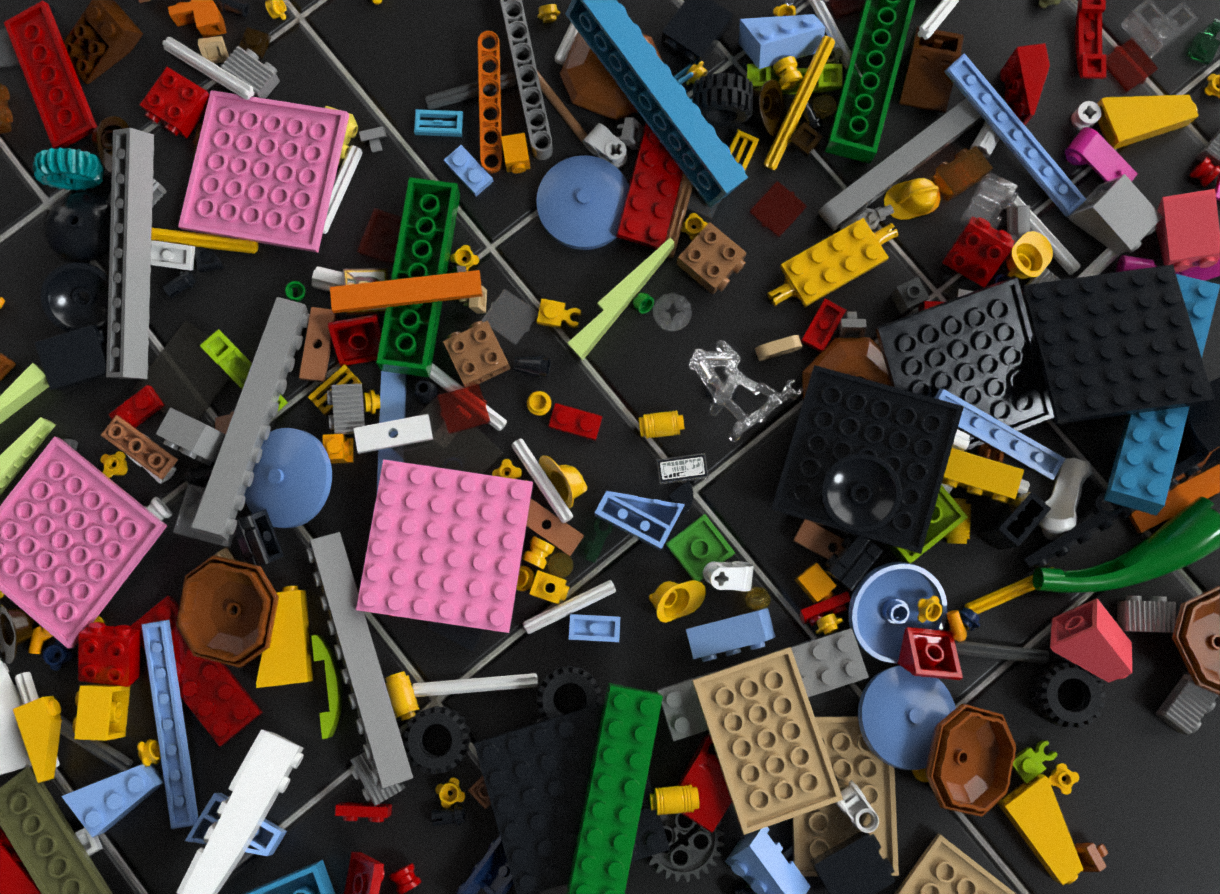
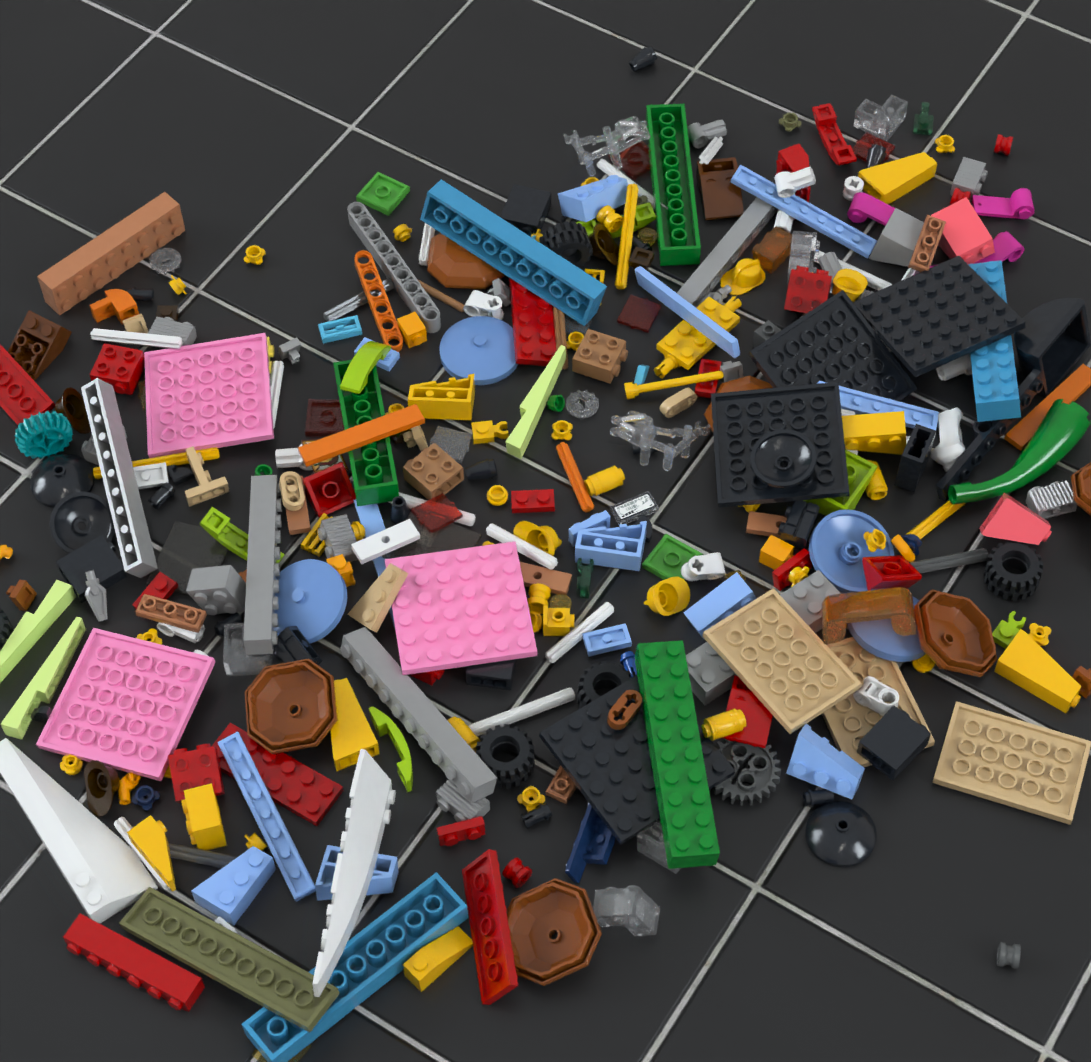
camera: 15 degrees left, 25 degrees down
(69, 396) = (96, 596): none -> light grey piece
(225, 278) = (207, 488): none -> tan bracket
(314, 332) = (293, 492): none -> tan plate
(361, 506) = (379, 598): none -> tan wing
(440, 192) = (362, 364): none -> lime slope
(519, 262) = (444, 400): none -> yellow wedge
(577, 754) = (628, 712): none -> dark orange beam
(609, 668) = (628, 660): none -> blue pin
(631, 407) = (575, 477): none -> orange axle
(633, 477) = (596, 520): none -> light blue plate
(644, 338) = (562, 426): none -> yellow plate
(734, 313) = (633, 389): none -> yellow piece
(750, 295) = (641, 374): none -> medium azure tile
(829, 239) = (688, 312): none -> light blue tile
(883, 719) = (867, 606): none -> clear orange windscreen
(1013, 98) = (789, 182): none -> white piece
(1128, 82) = (875, 155): none -> black cone
(1132, 246) = (924, 252): none -> nougat tile

